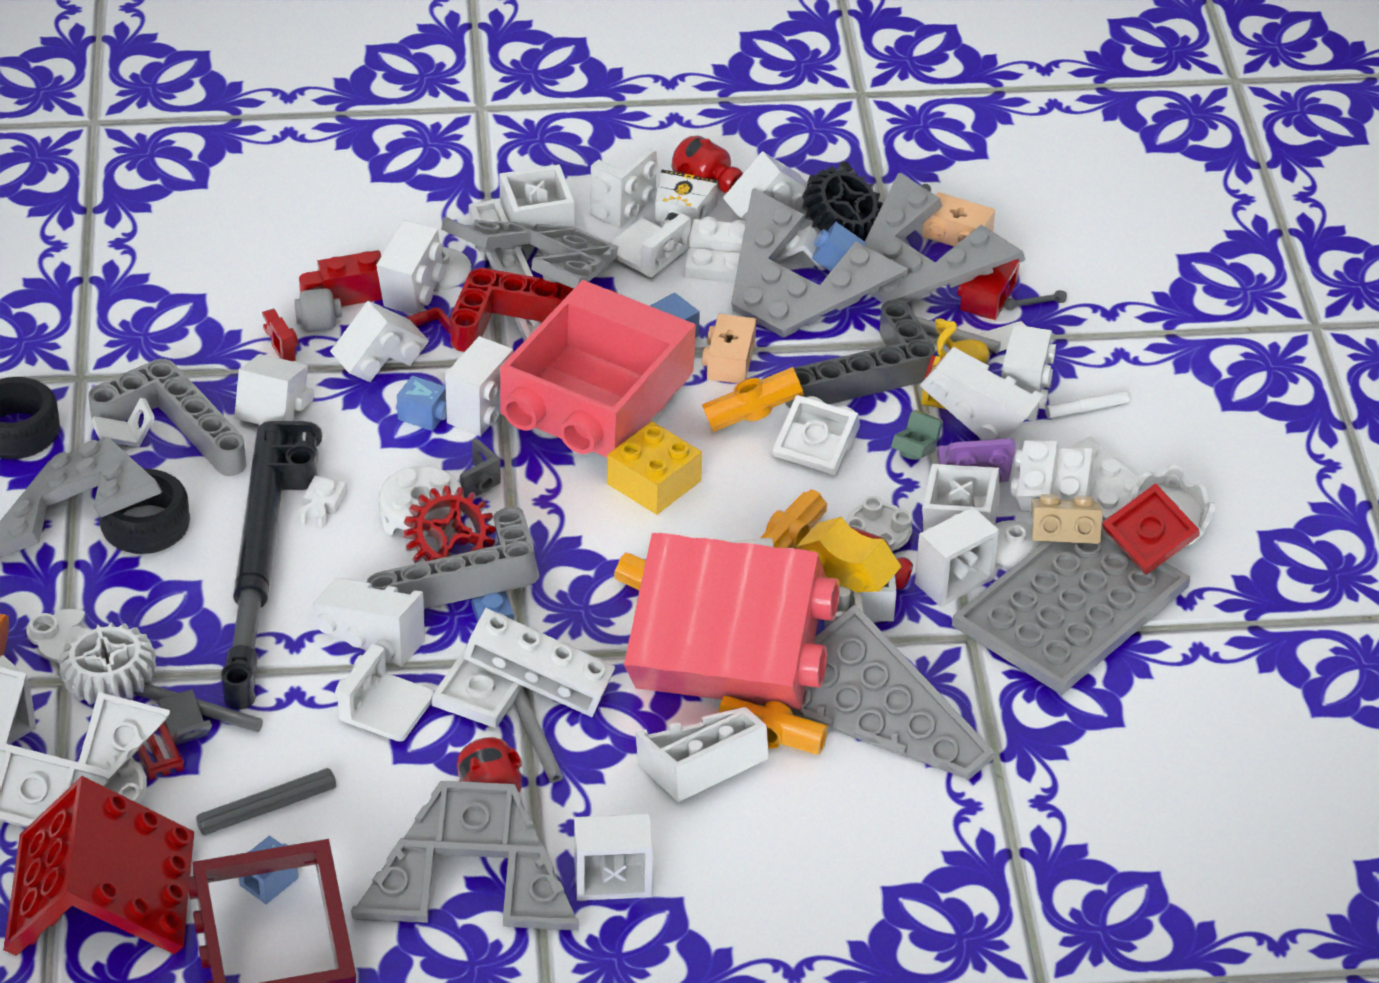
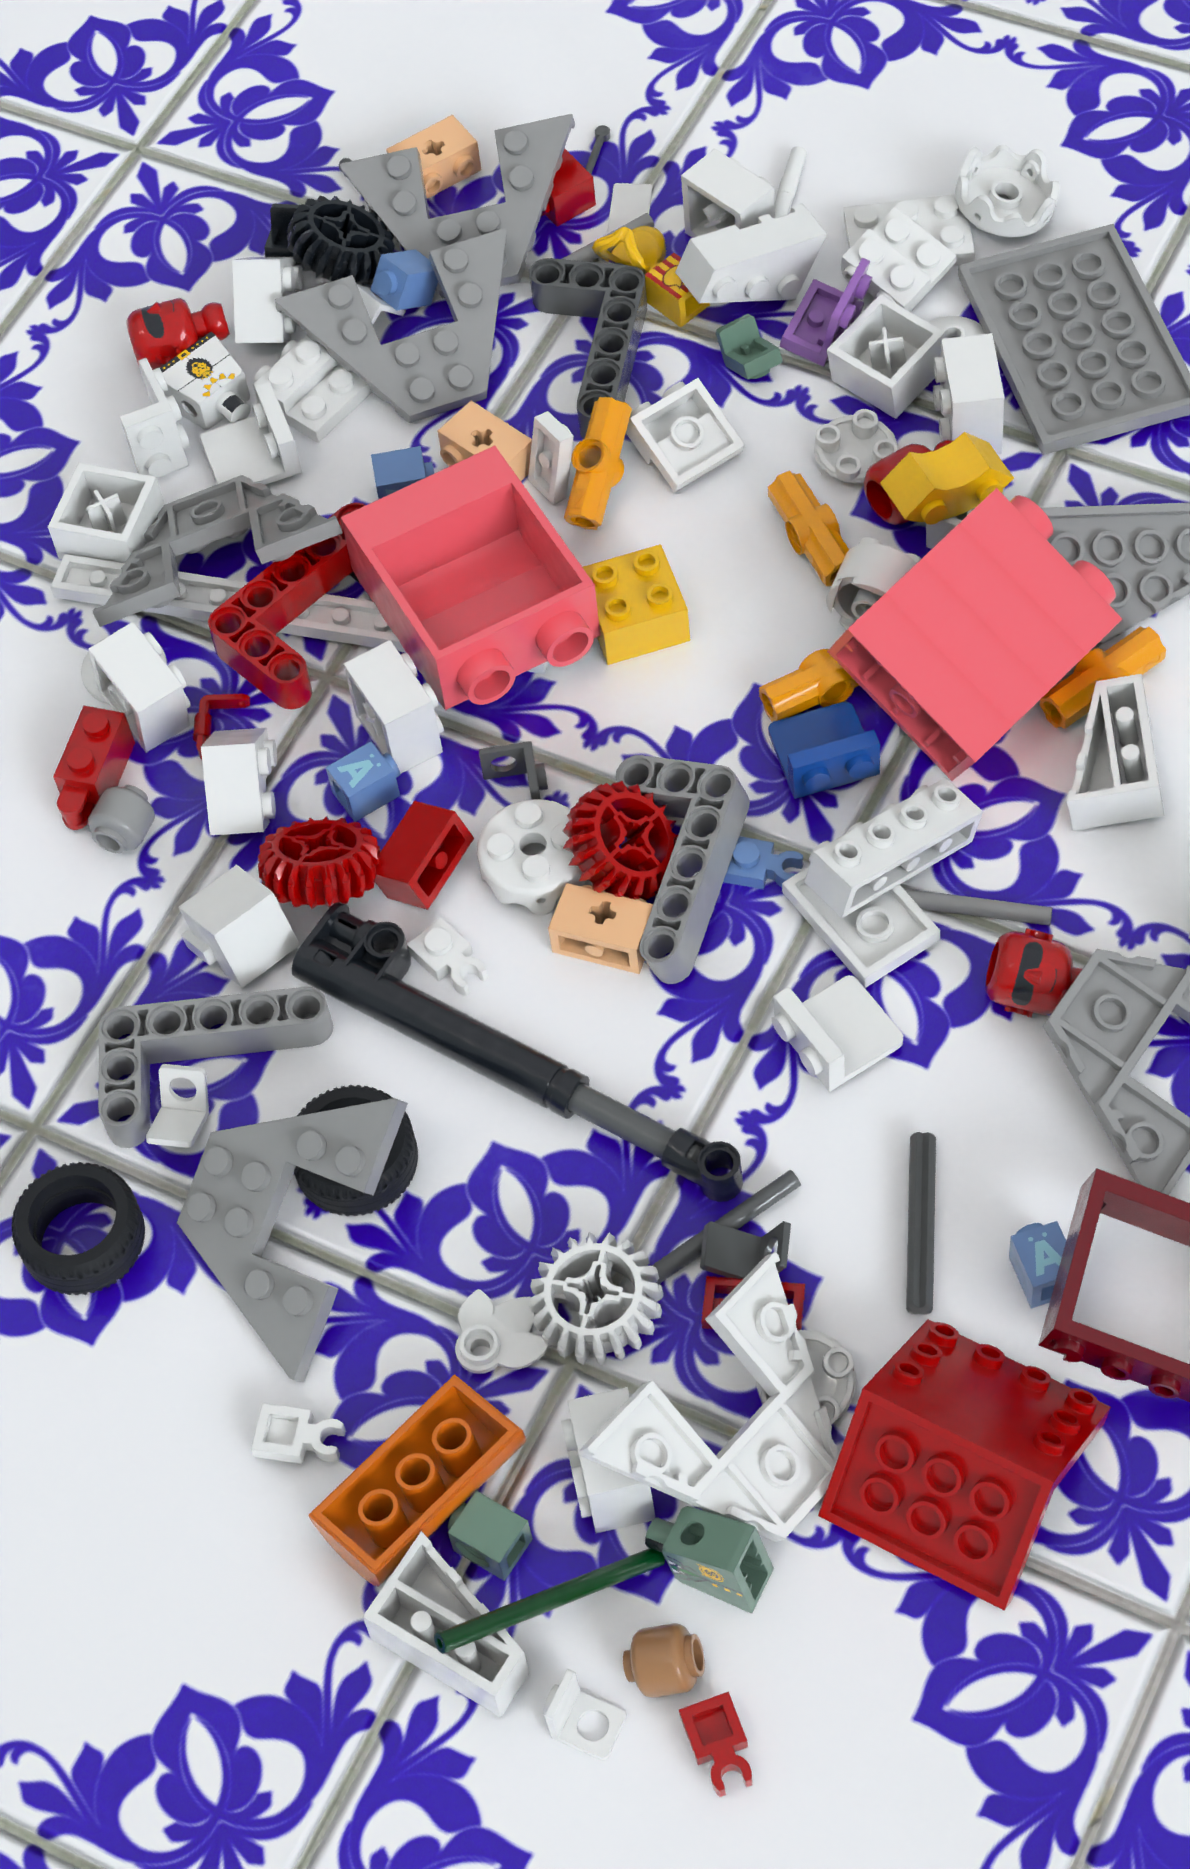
camera: 50 degrees left, 15 degrees up
(282, 338) = (137, 876): red plate -> none
(339, 403) = (319, 862): none -> red gear
(372, 616) = (704, 986): white wedge -> none
(379, 448) = (421, 854): none -> red brick
(384, 546) = (599, 927): none -> light nougat brick
(602, 608) = (824, 749): none -> blue bracket
(741, 366) = (550, 457): none -> white plate
(1066, 519) = (974, 278): tan bracket -> none
(1151, 529) = (1049, 215): red plate -> none

